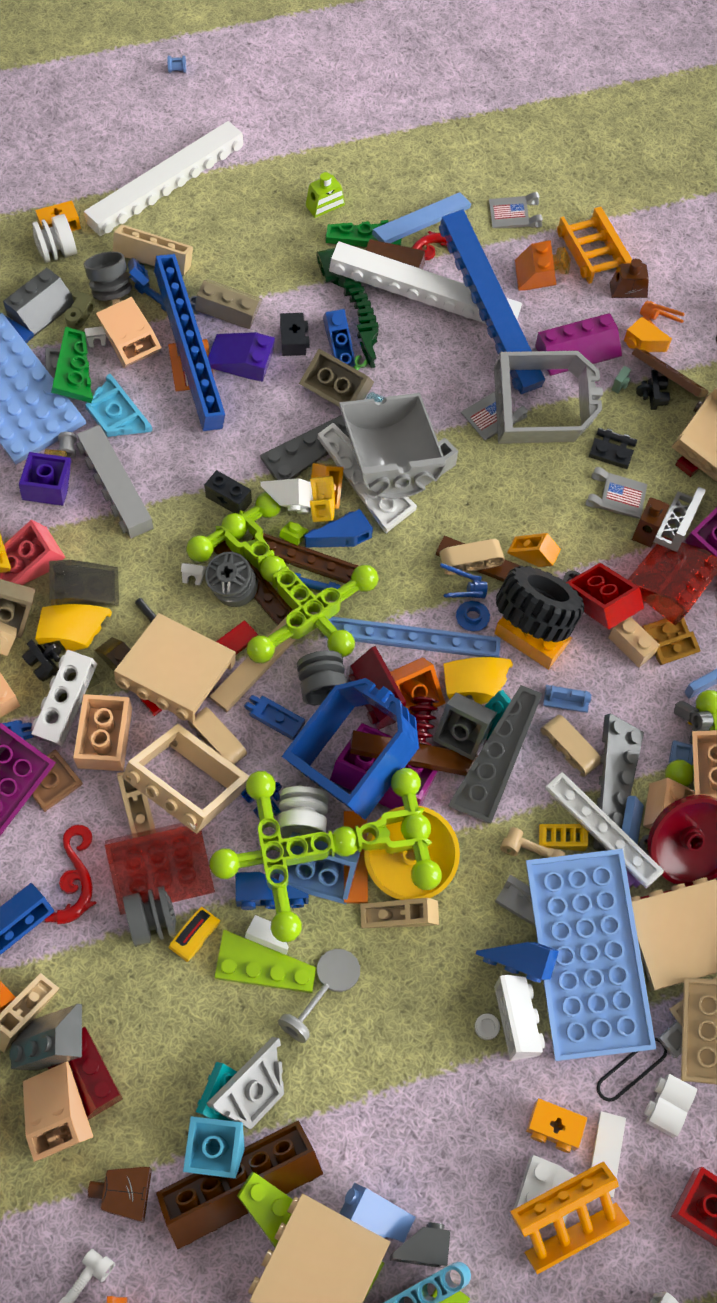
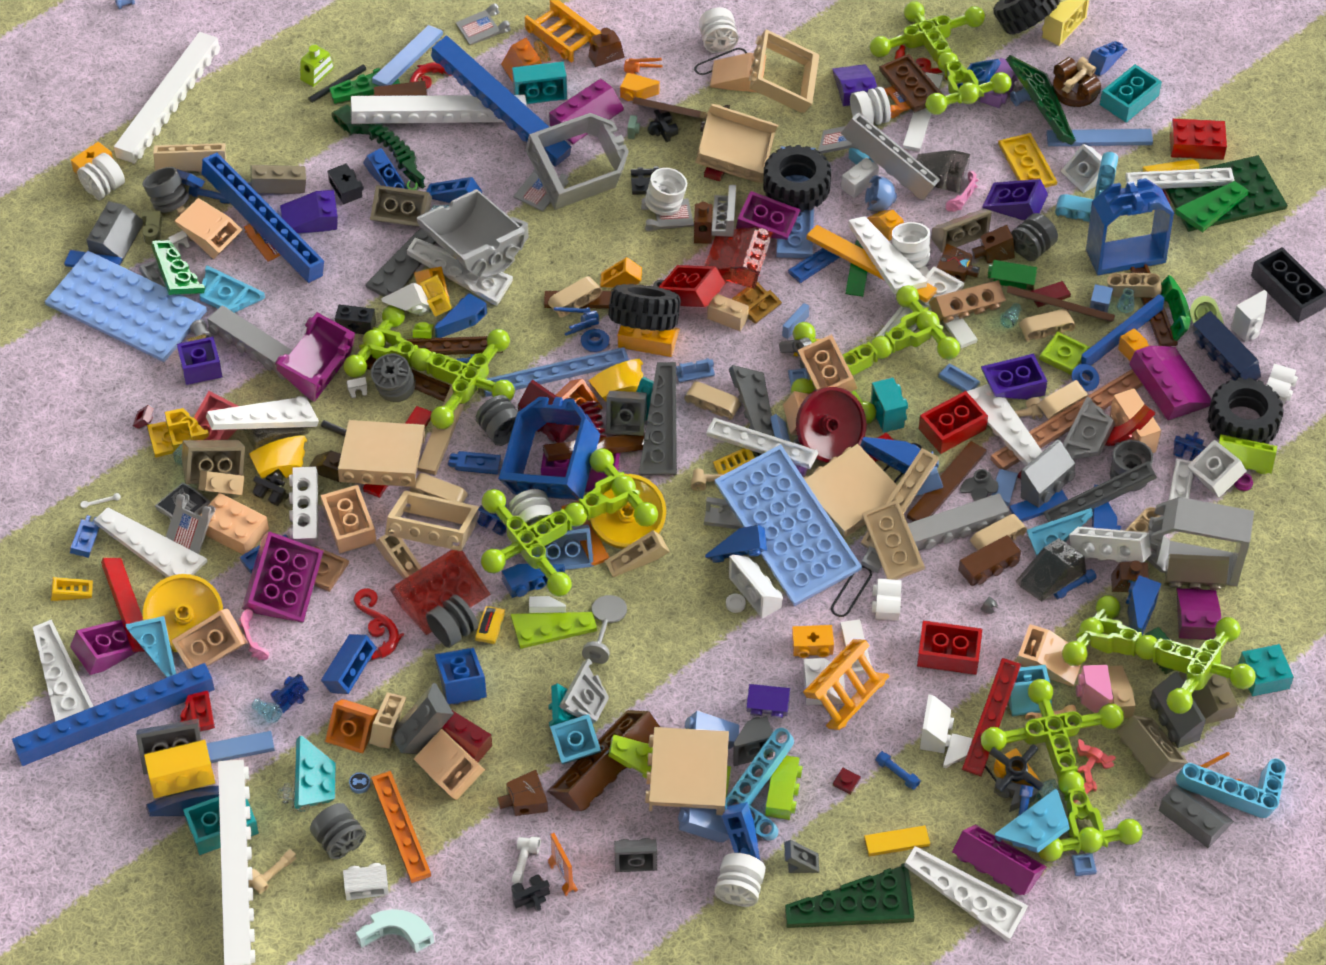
camera: 20 degrees left, 10 degrees down
(85, 574) = (274, 414): none -> white wing
(129, 989) = (461, 676): none -> blue slope
(162, 523) = (316, 356): none -> magenta windscreen
(352, 219) = (349, 76): none -> black bar
(400, 382) = (452, 189): none -> blue slope
(462, 1205) = (768, 700): none -> dark purple slope
(544, 295) = (540, 82): none -> teal brick
(624, 469) = (665, 191): none -> white wheel

